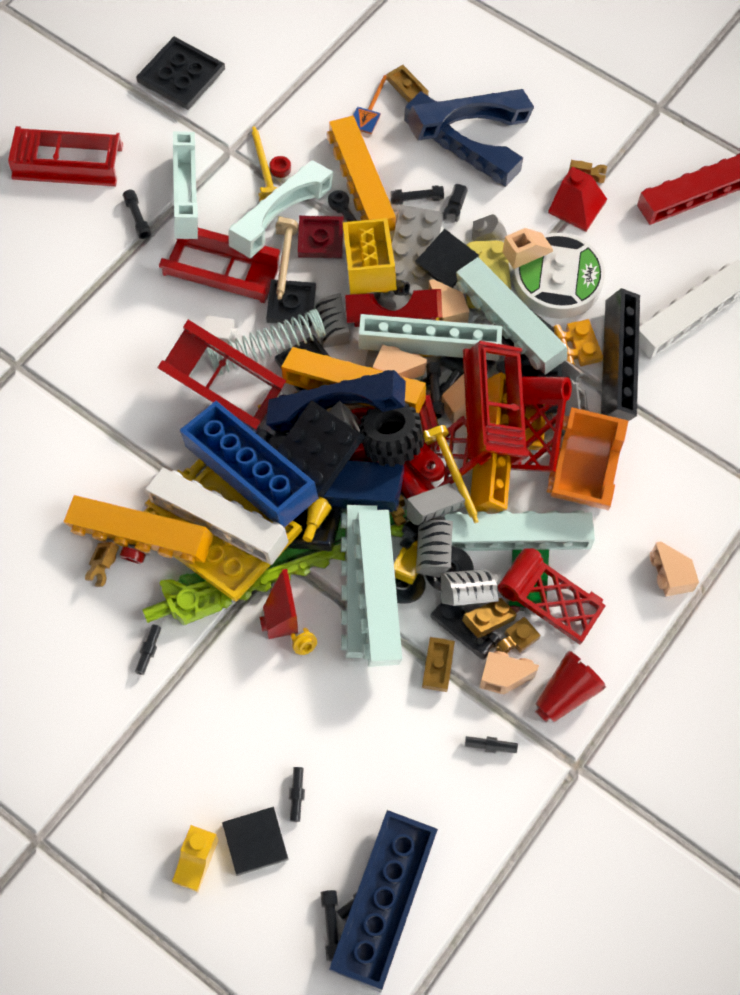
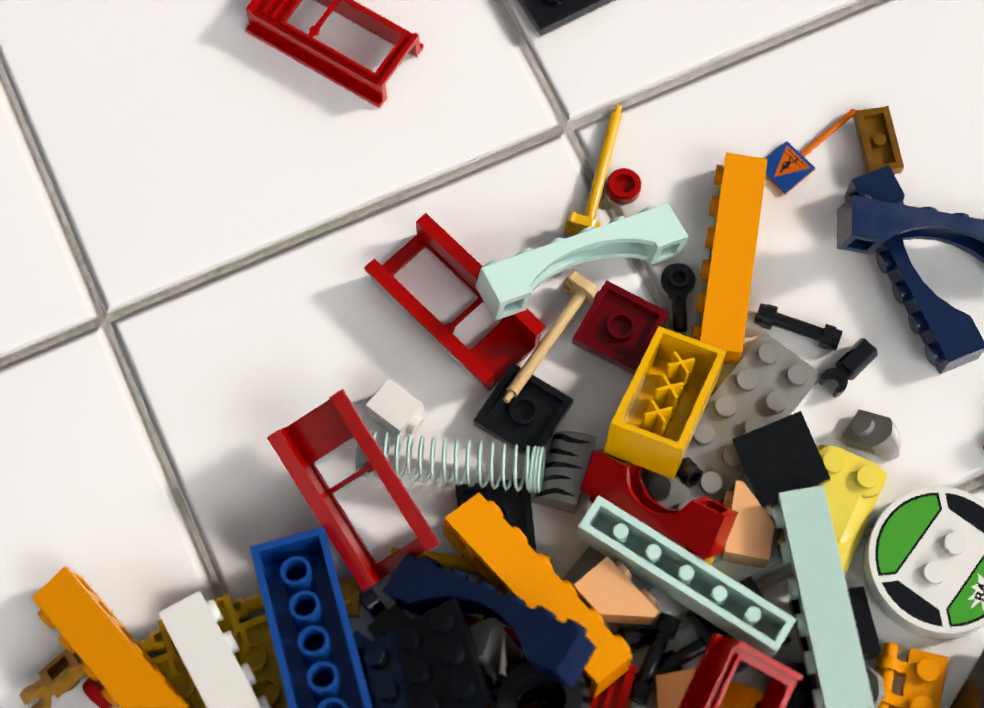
camera: 30 degrees right, 5 degrees up
(141, 226) = (386, 142): black bar -> none
(184, 186) = (453, 182): light aqua arch -> none
(525, 247) = (908, 501): light nougat slope -> none

